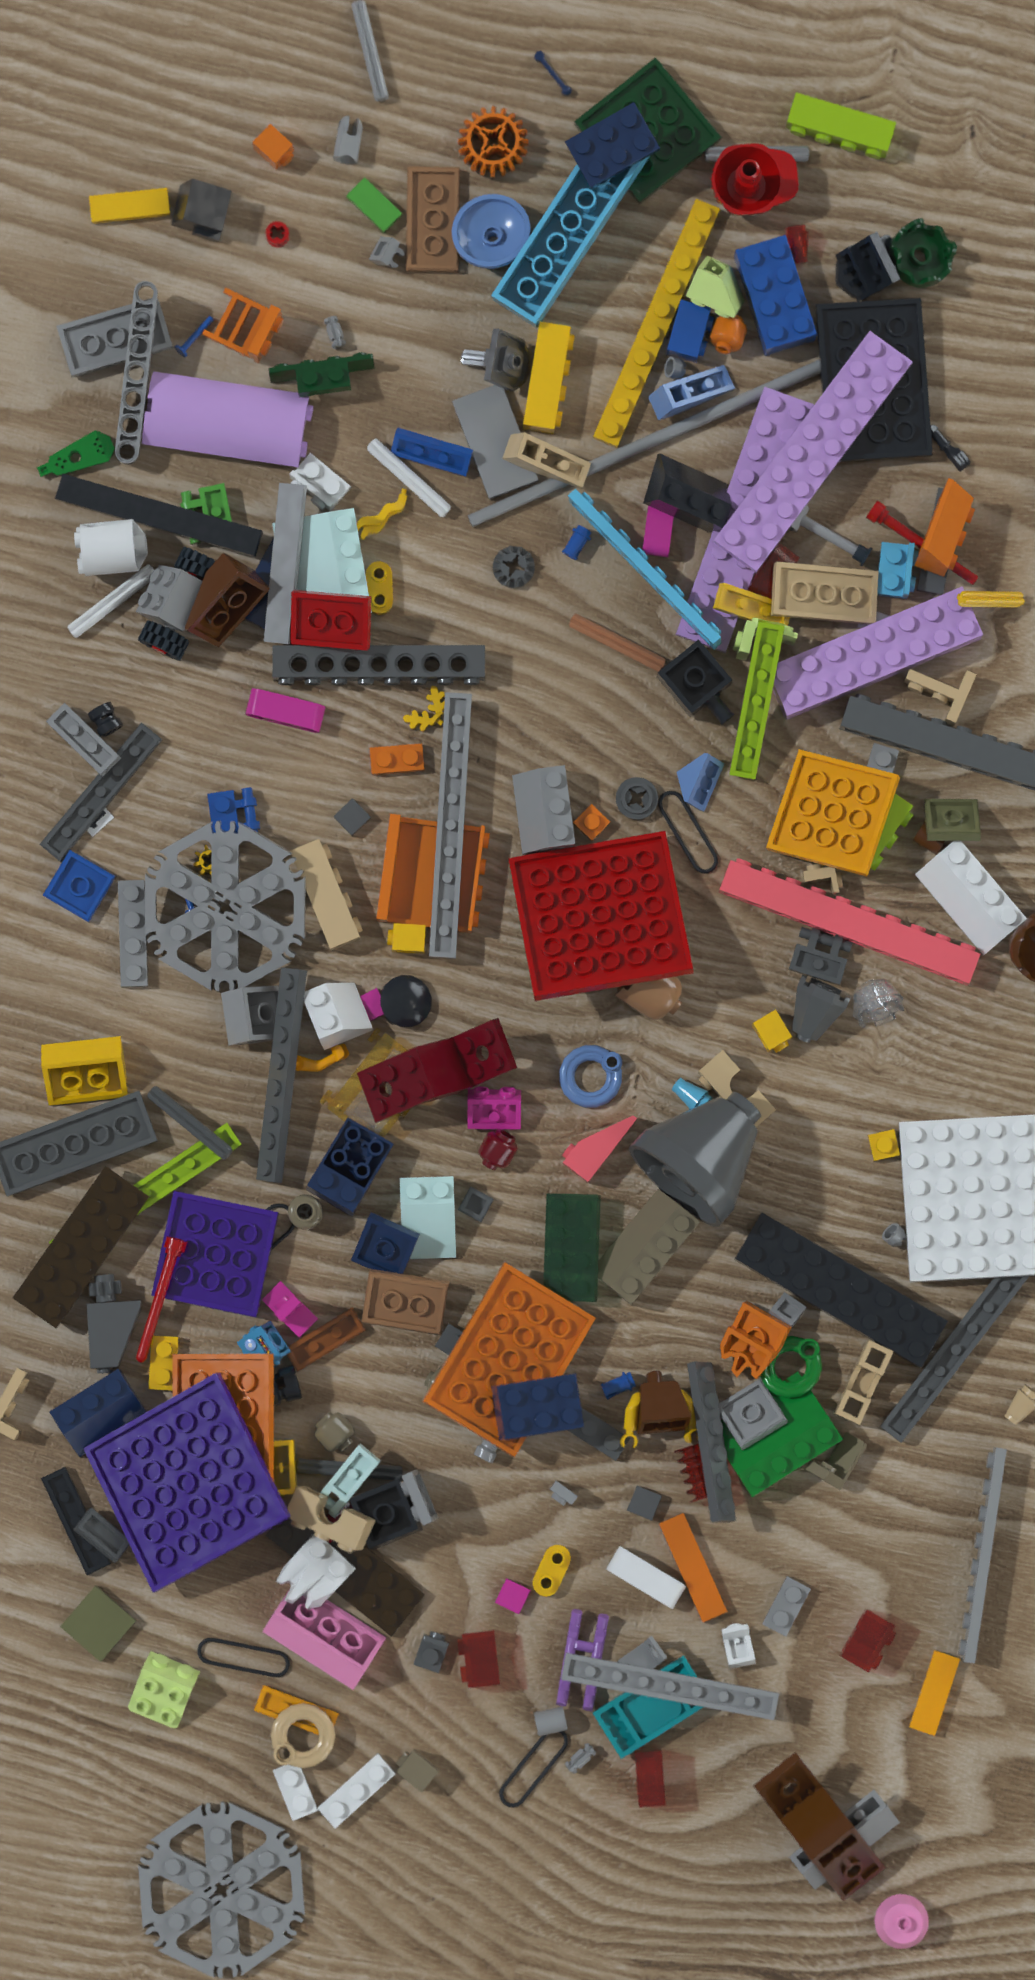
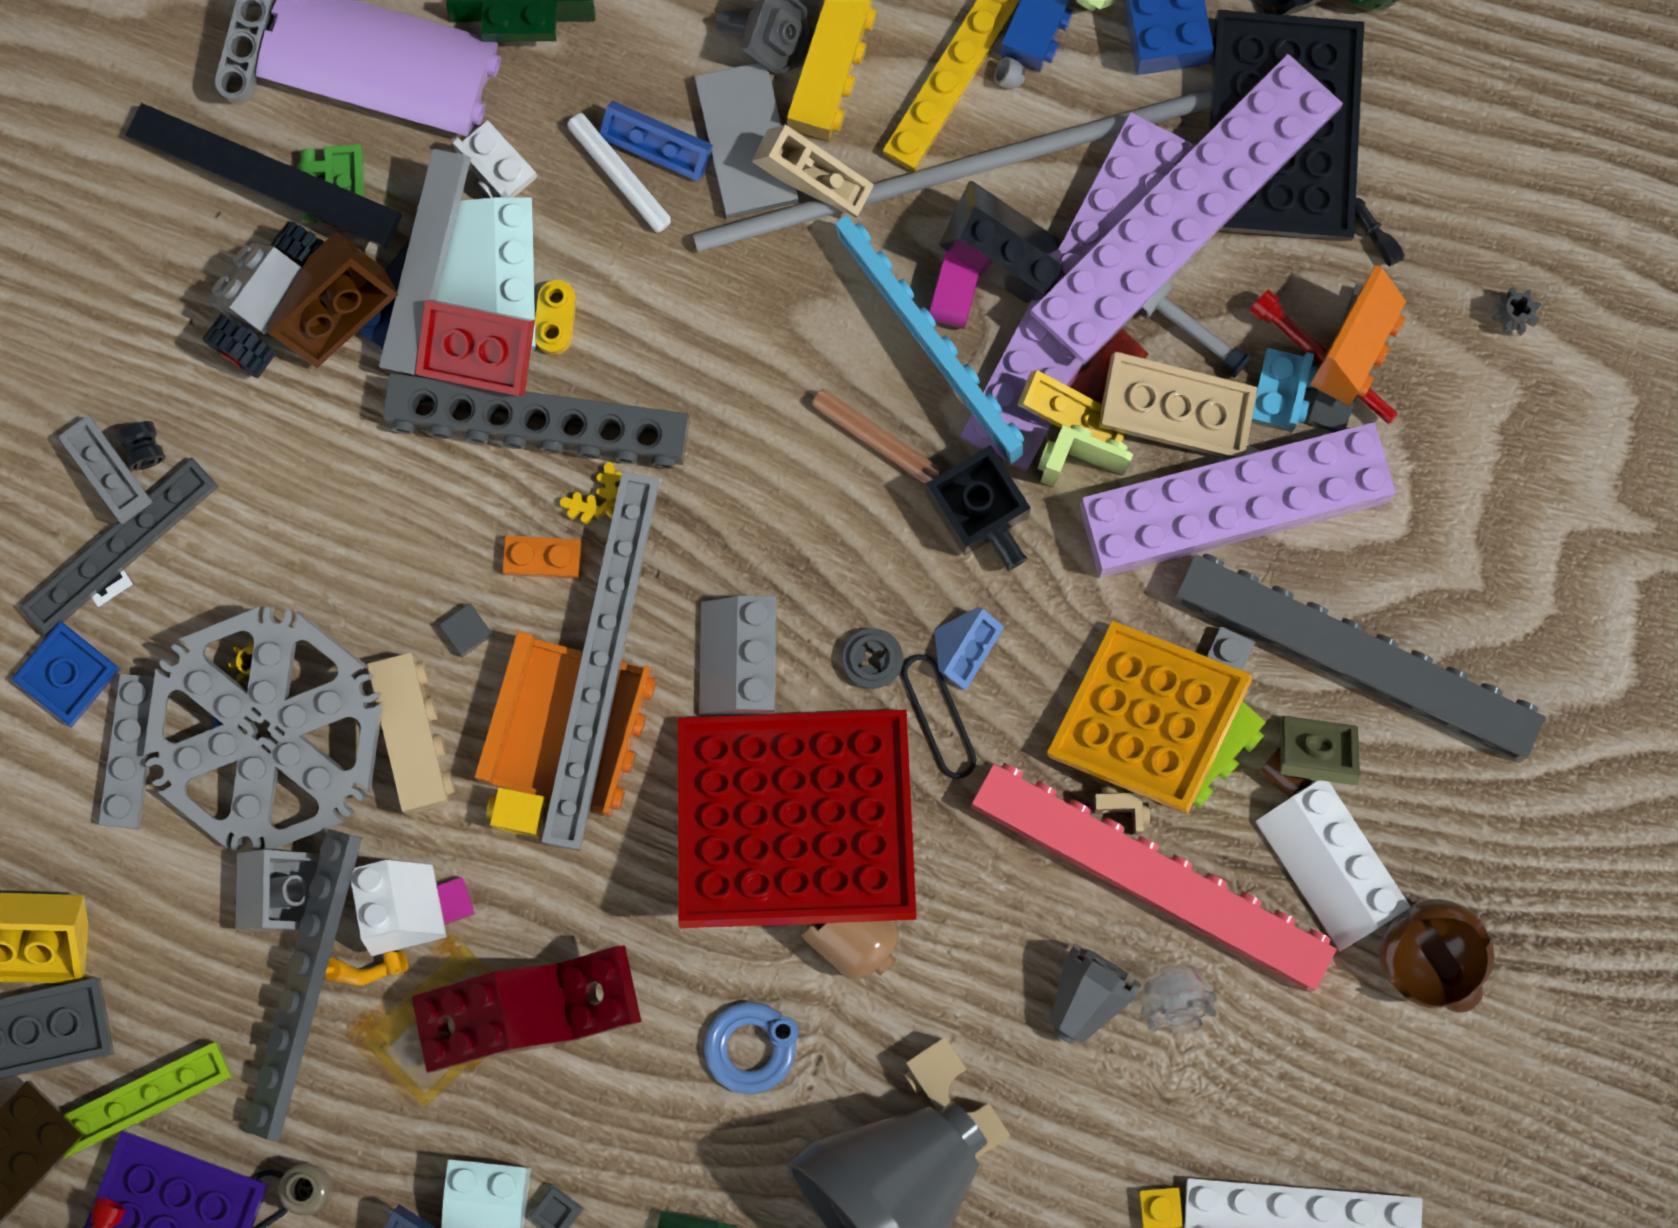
camera: 10 degrees right, 5 degrees down
(86, 448) = (181, 76): green piece -> none
(110, 547) = (185, 208): white cylinder -> none
(111, 601) = (176, 286): white axle -> none
(190, 1123) = (161, 1035): dark grey axle -> none
(224, 808) = (289, 590): blue plate -> none
(285, 710) = (395, 467): dark pink beam -> none
(349, 1167) = (380, 1131): dark blue slope -> none
(376, 523) = (565, 229): yellow hair -> none
(405, 1001) = (500, 902): black dish -> none
(494, 1108) = (603, 1075): dark pink bracket -> none
(497, 1149) = (599, 1136): dark red head -> none
(518, 578) = (750, 329): dark grey gear -> none
(577, 542) = (839, 291): blue pin -> none
(591, 822) = (803, 684): orange plate -> none
(593, 1151) = (735, 1159): coral slope -> none
(690, 392) = (1025, 107): medium blue slope -> none
(690, 1093) = (890, 1094): medium azure cone -> none
(728, 334) = (1090, 36): orange head -> none
(757, 699) = (1062, 539): lime plate -> none
(772, 1032) = (1020, 1020): yellow brick -> none
(818, 963) = (1099, 930): dark grey plate -> none
(942, 692) = (1327, 567): tan bracket -> none
(990, 599) = (1412, 445): yellow axle -> none

